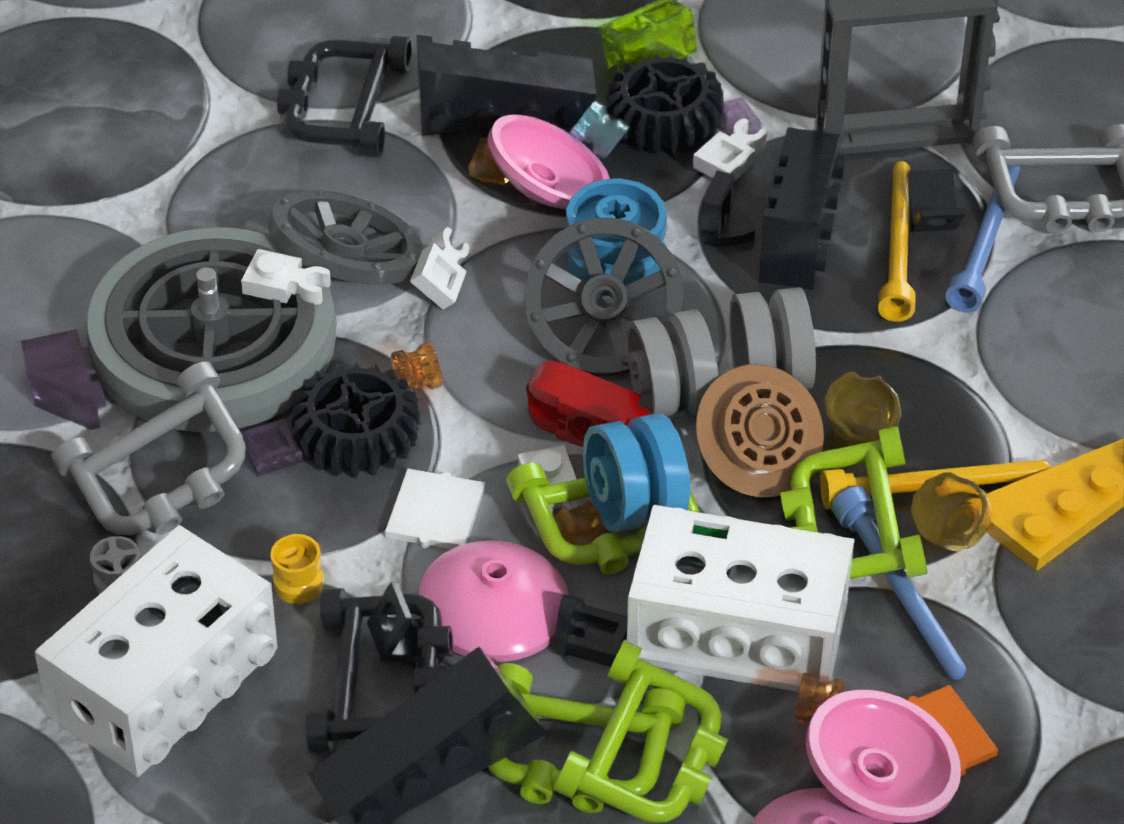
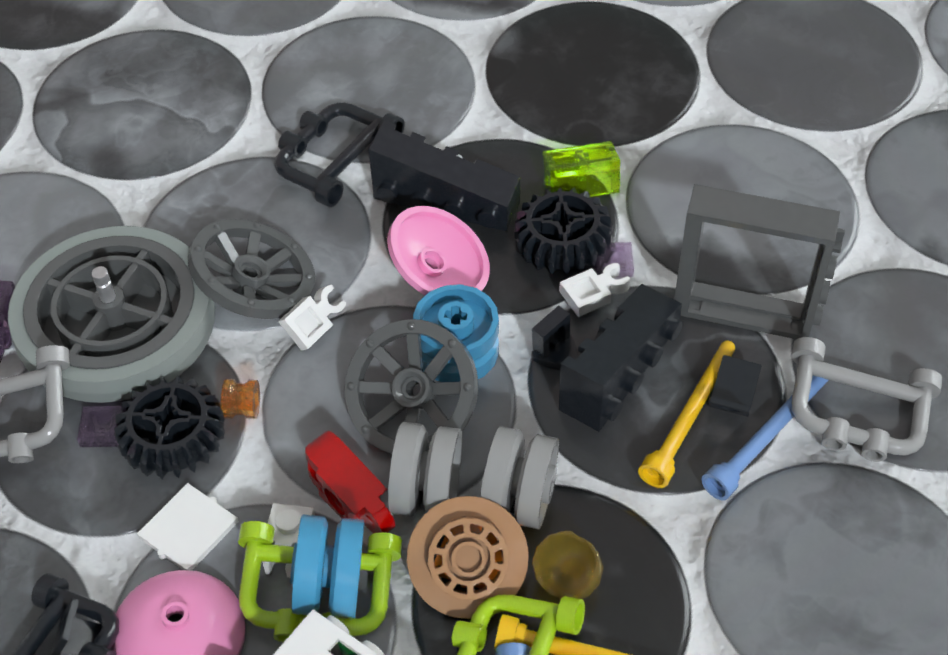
camera: 25 degrees right, 5 degrees up
(280, 275) = (173, 287): white plate -> none
(297, 569) = (44, 545): yellow wheel -> none
(580, 524) = (275, 590): clear orange tile -> none
(599, 129) = (496, 236): clear light blue wheel -> none

